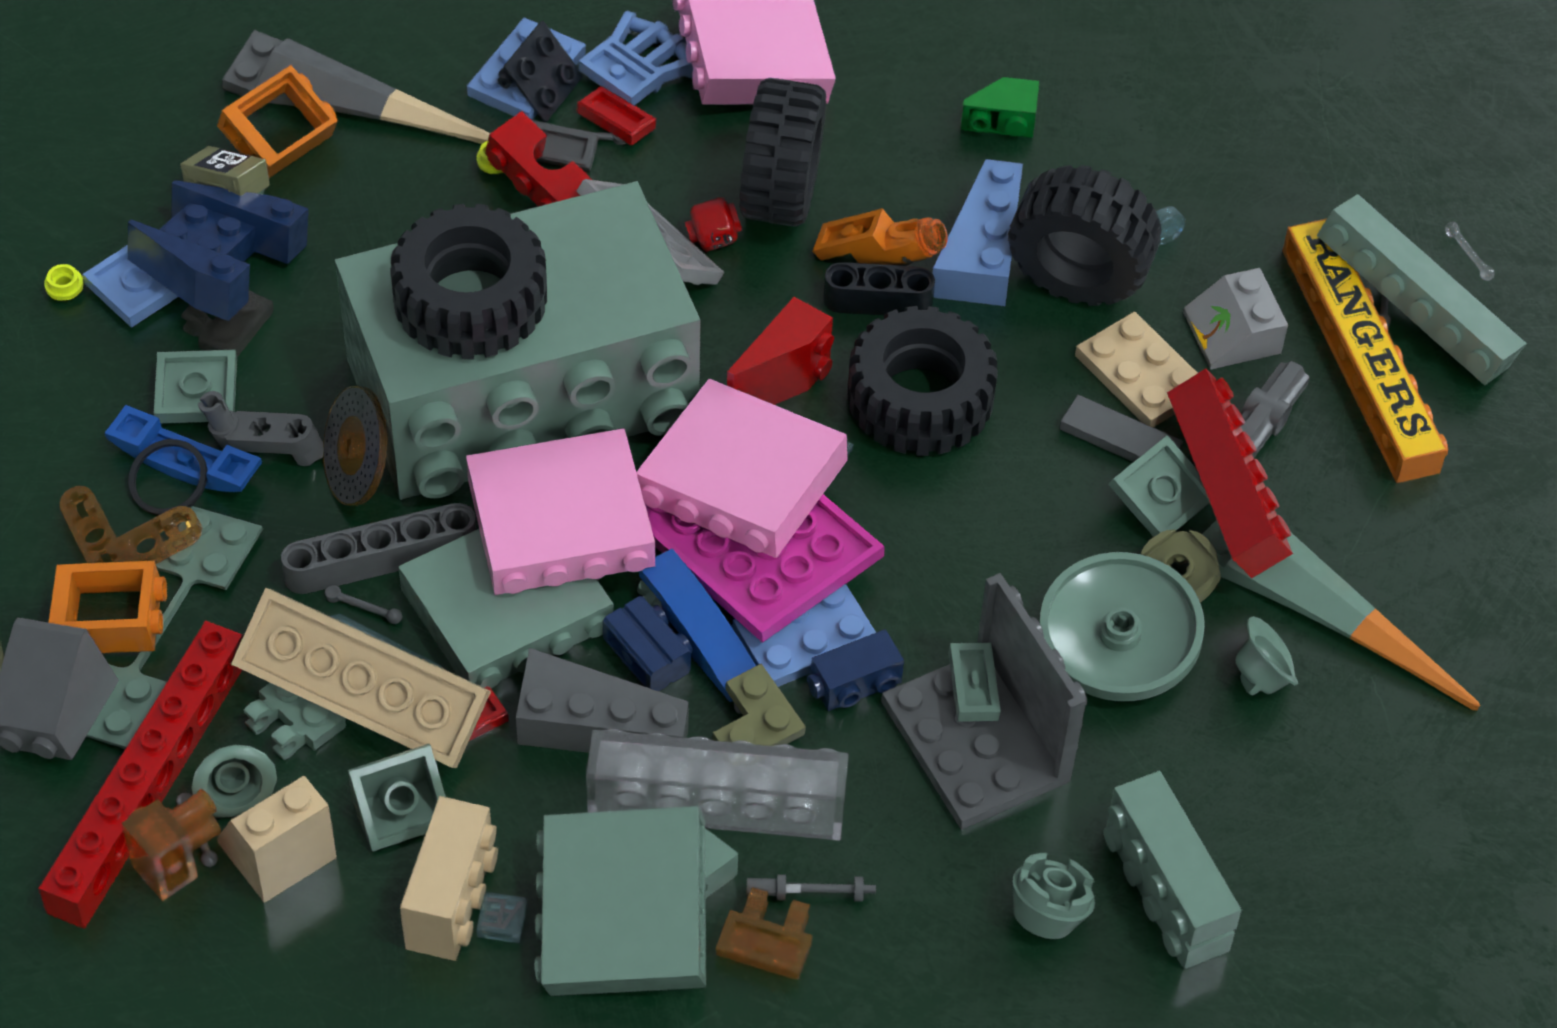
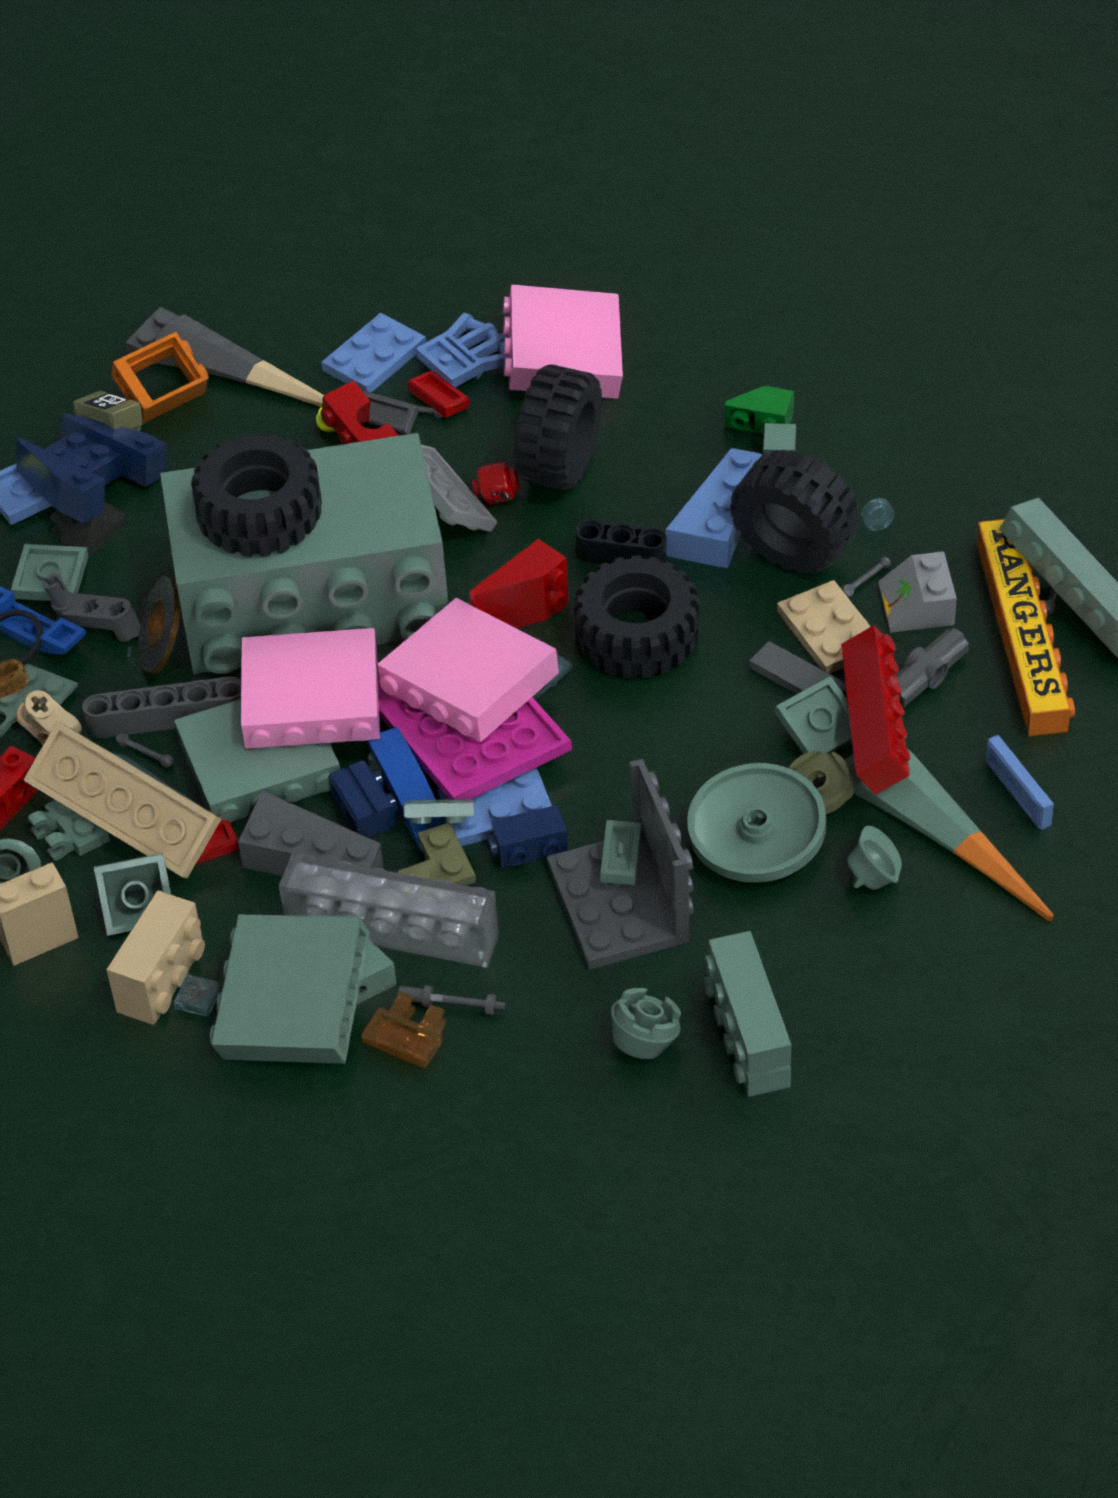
camera: 15 degrees right, 5 degrees down
(240, 582) = (43, 721): none -> tan piece
(541, 72) = (382, 354): black hinge -> none
(764, 649) = (453, 810): none -> sand green plate
(878, 240) = (630, 505): orange plate -> none
(1034, 148) = (779, 437): none -> sand green brick
(1184, 284) = (848, 589): none -> dark grey hinge
(1405, 544) = (1019, 782): none -> medium blue tile

